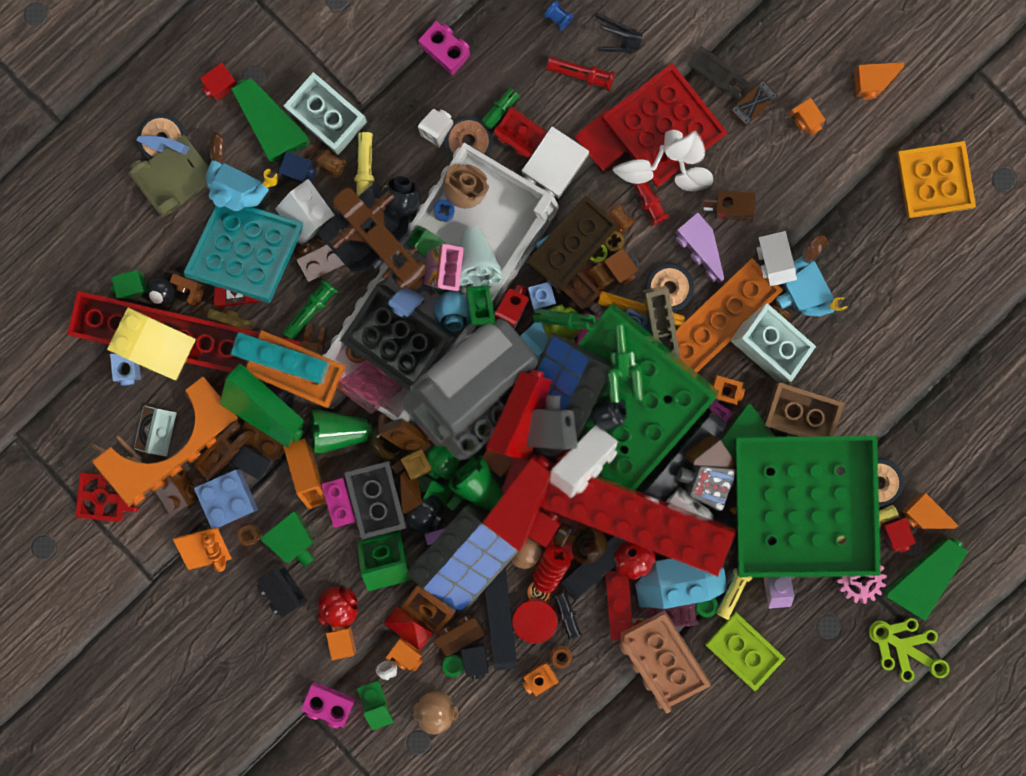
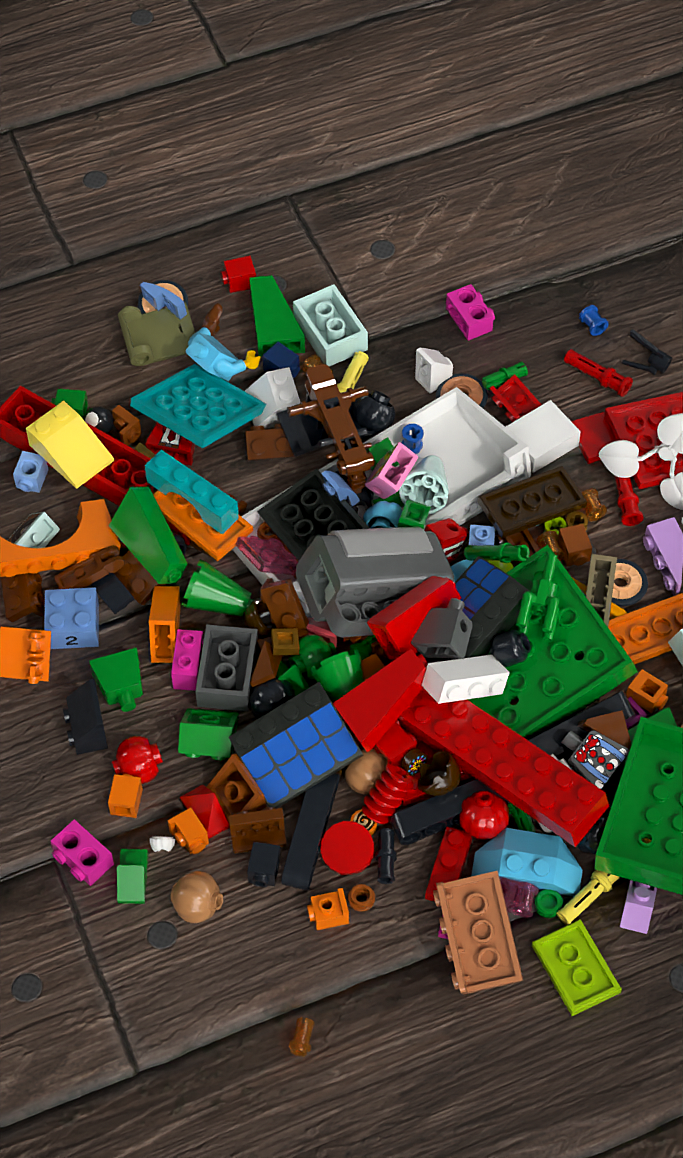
camera: 20 degrees right, 30 degrees down
(256, 532) = (78, 659): clear orange bush -> none
(316, 301) = (247, 478): green pin -> none
(453, 665) = (236, 865): green tile -> none
(465, 186) = (440, 422): medium nougat cylinder -> none

